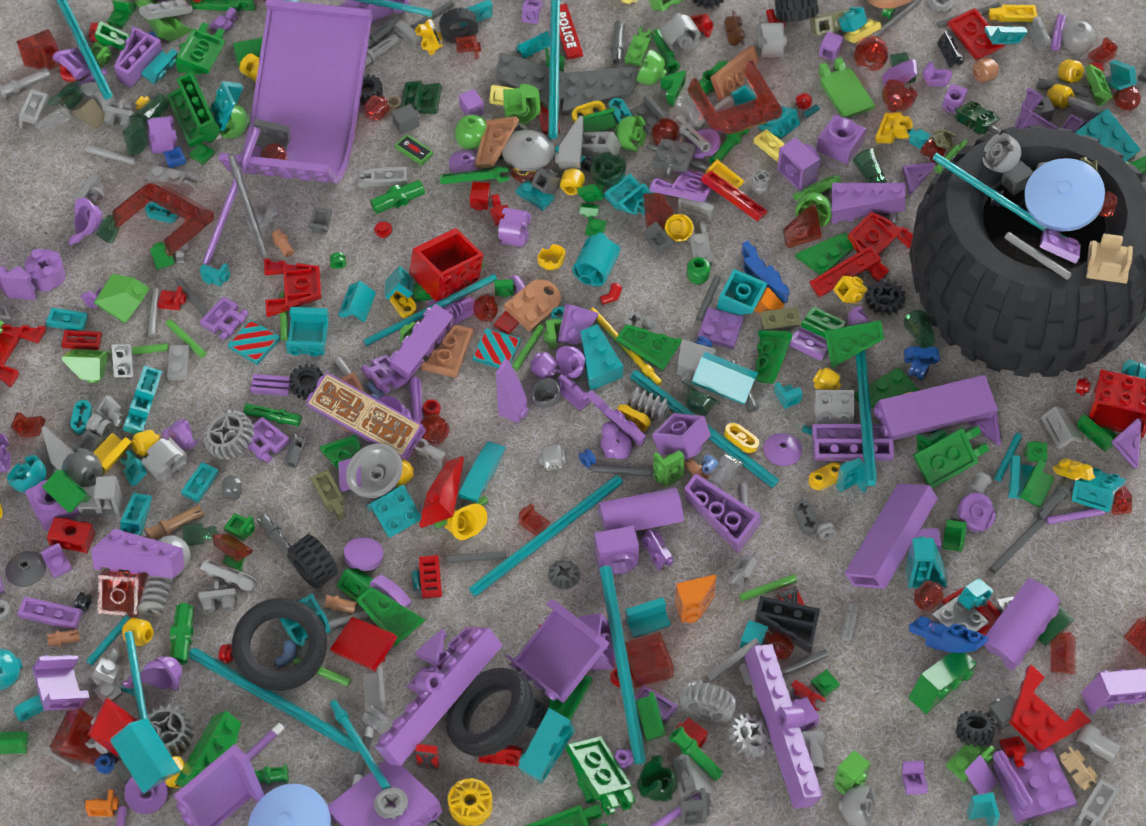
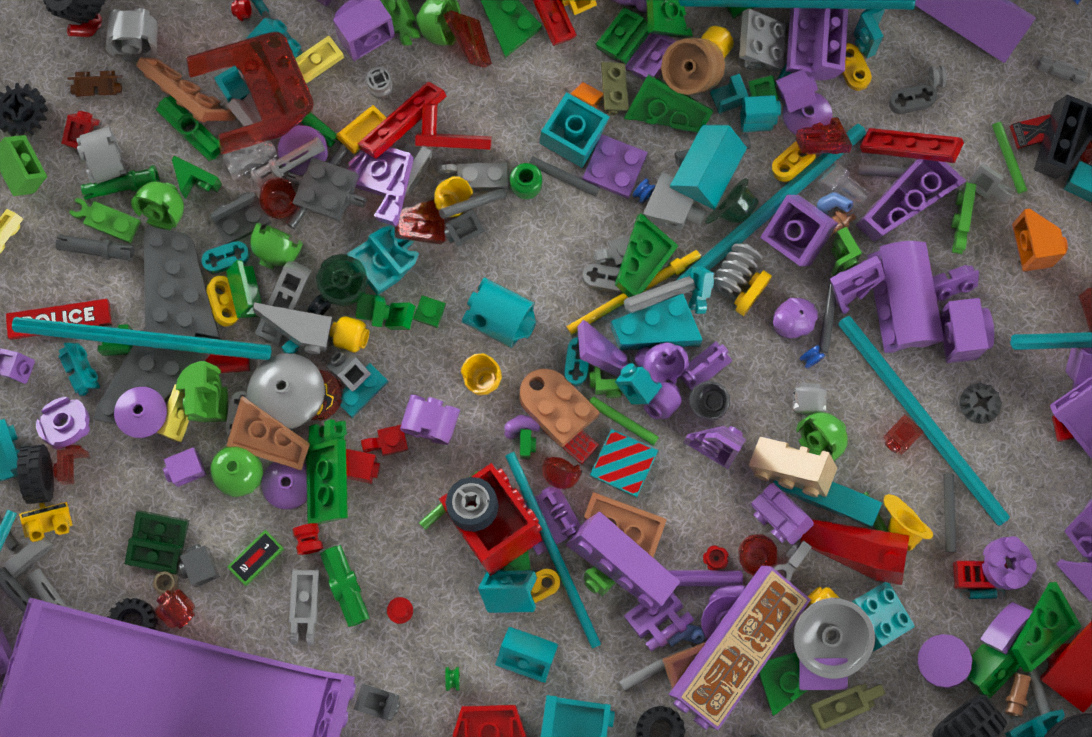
camera: 85 degrees left, 20 degrees up
(428, 173) = (307, 539): none -> red wheel
(441, 581) = (1021, 558): none -> medium lavender plate
(451, 239) = (472, 517): none -> wheel
(464, 440) = (782, 514): none -> medium lavender brick
(495, 39) = (69, 433): none -> plate
(498, 443) = (793, 467): none -> tan wedge
(504, 73) = (146, 422): none -> medium lavender dish
(526, 465) = (823, 433): none -> bright green cylinder
(551, 340) = (637, 384): none -> teal brick
(613, 294) = (548, 298): red arm -> none
(619, 419) = (782, 296): medium lavender wing -> none
(621, 352) = (659, 294): none -> light grey axle
(633, 381) = (704, 283): none -> teal plate
(644, 473) = (856, 282): none -> medium lavender wing
(647, 617) = (1050, 305): teal panel -> none
(674, 236) = (472, 203): none -> dark grey bar
(711, 552) = (962, 220): none -> bright green plate
(723, 223) = (430, 137): none -> red piece
(757, 268) = (544, 97): blue slope -> none
(759, 450) = (824, 139): none -> clear red wing
(760, 505) = (912, 145): none -> red tile
(772, 406) = (759, 113): none -> teal brick
(794, 415) = (763, 87): none -> green plate
(796, 432) = (797, 90): none -> medium lavender brick
(802, 360) = (692, 65): none -> medium nougat wheel

